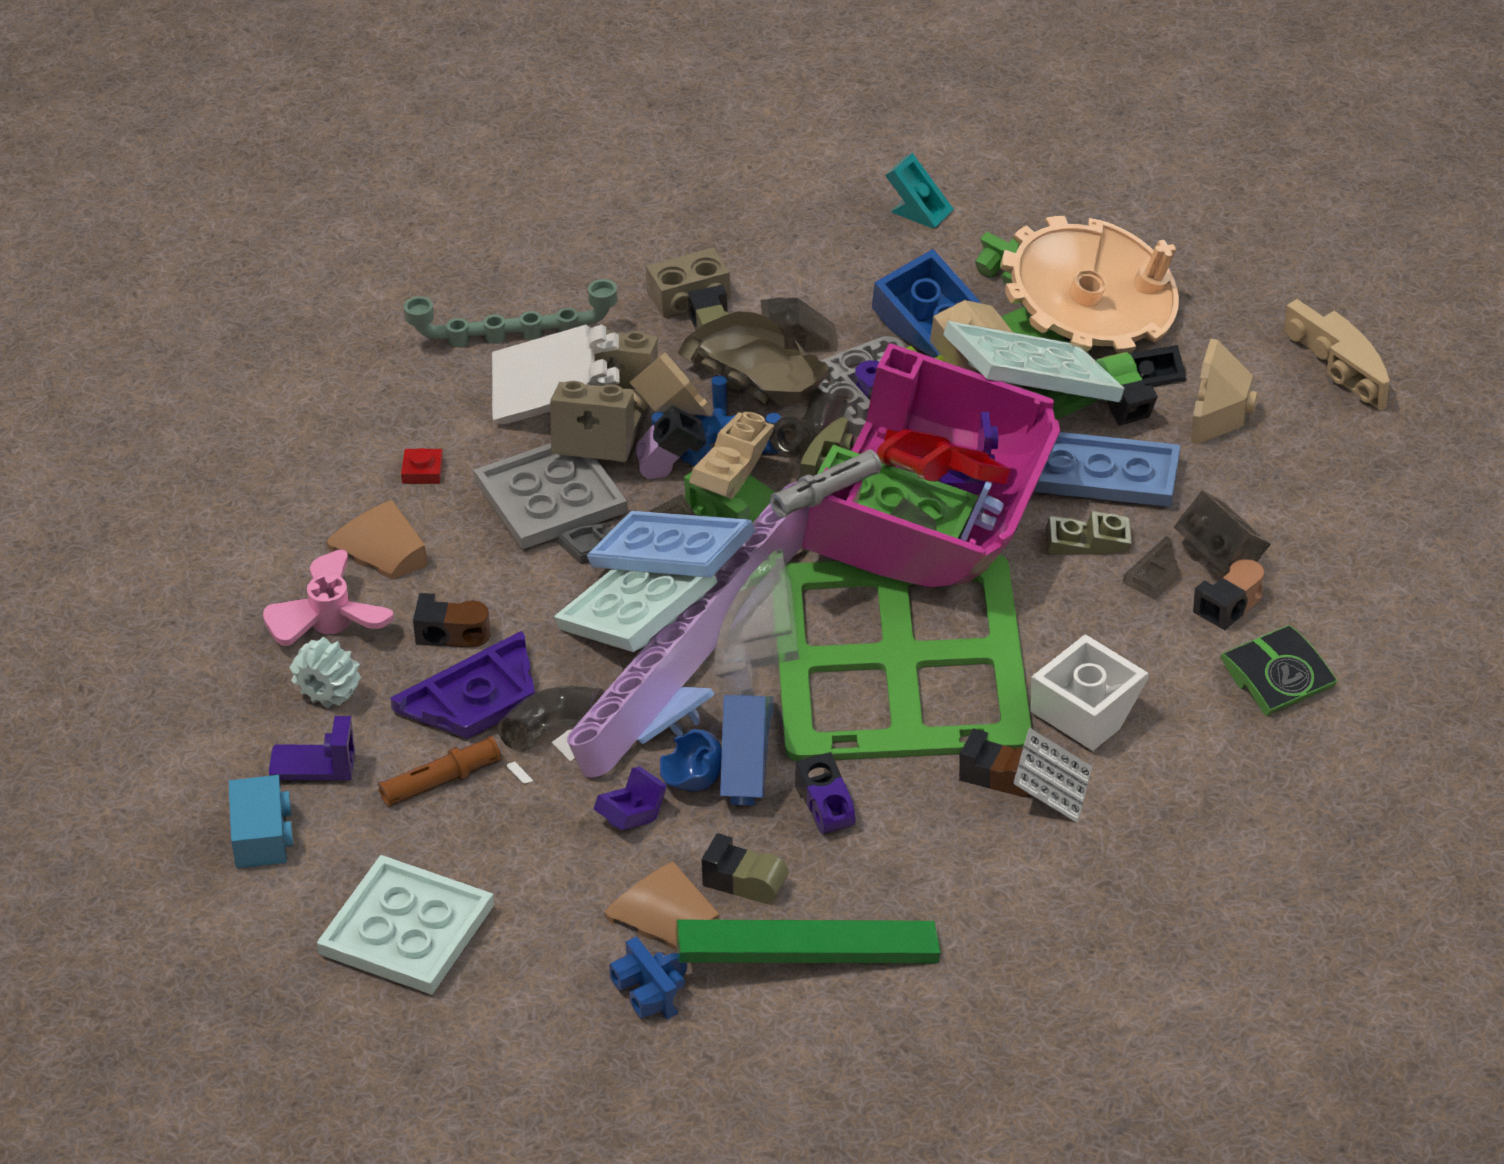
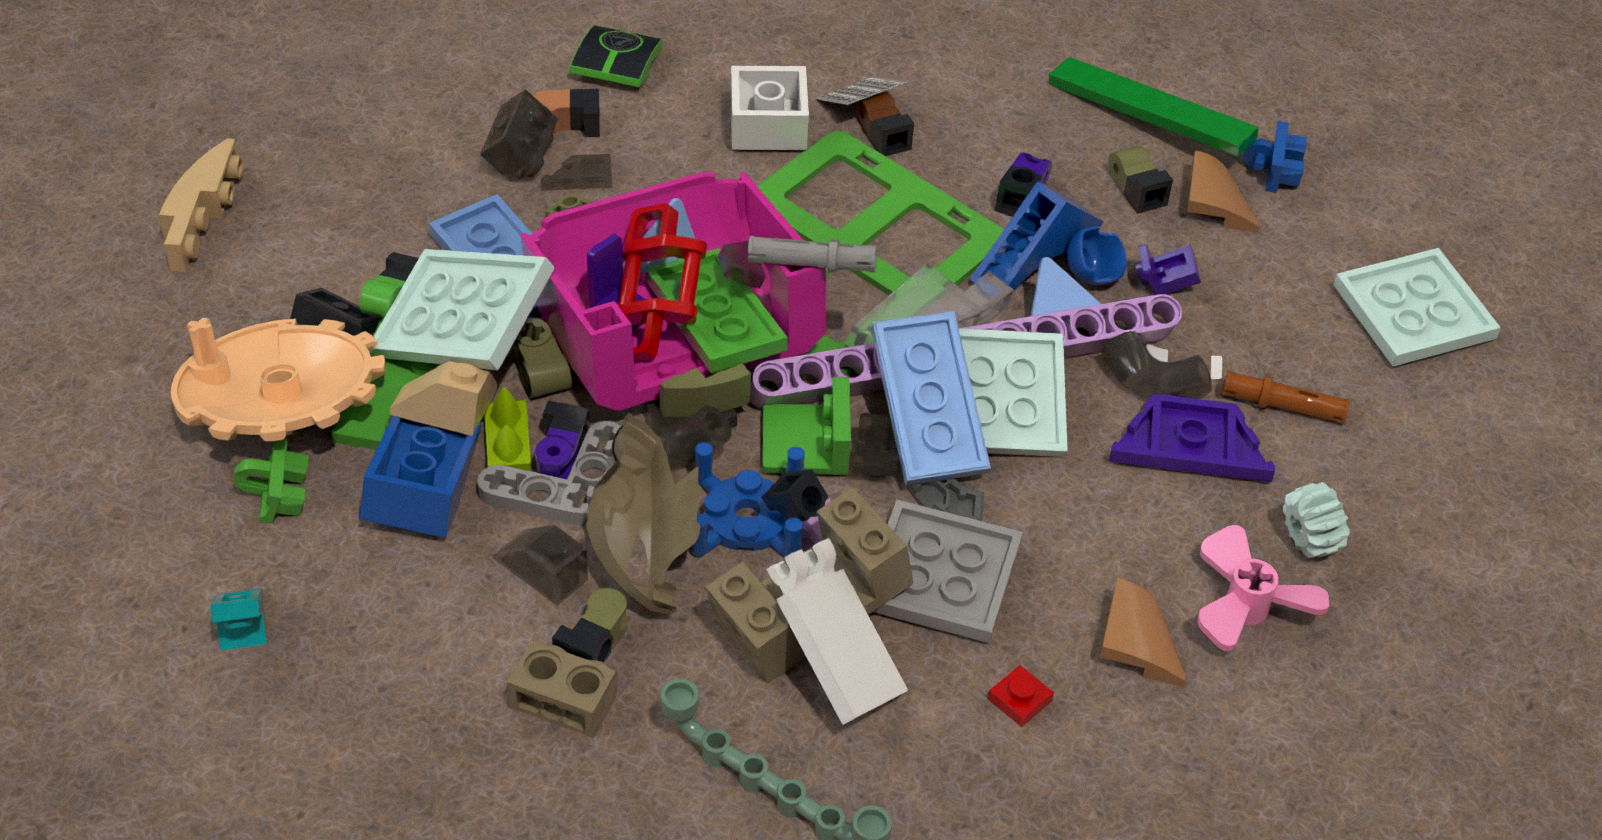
camera: 140 degrees left, 5 degrees up
(258, 822) = (1471, 449): dark azure brick -> none
(317, 762) = (1373, 473): dark purple bracket -> none
(450, 623) = (1159, 506): leg -> none
(666, 385) = (760, 526): tan slope -> none
(733, 455) = (795, 419): tan slope -> none
(1223, 394) = (350, 230): tan slope -> none

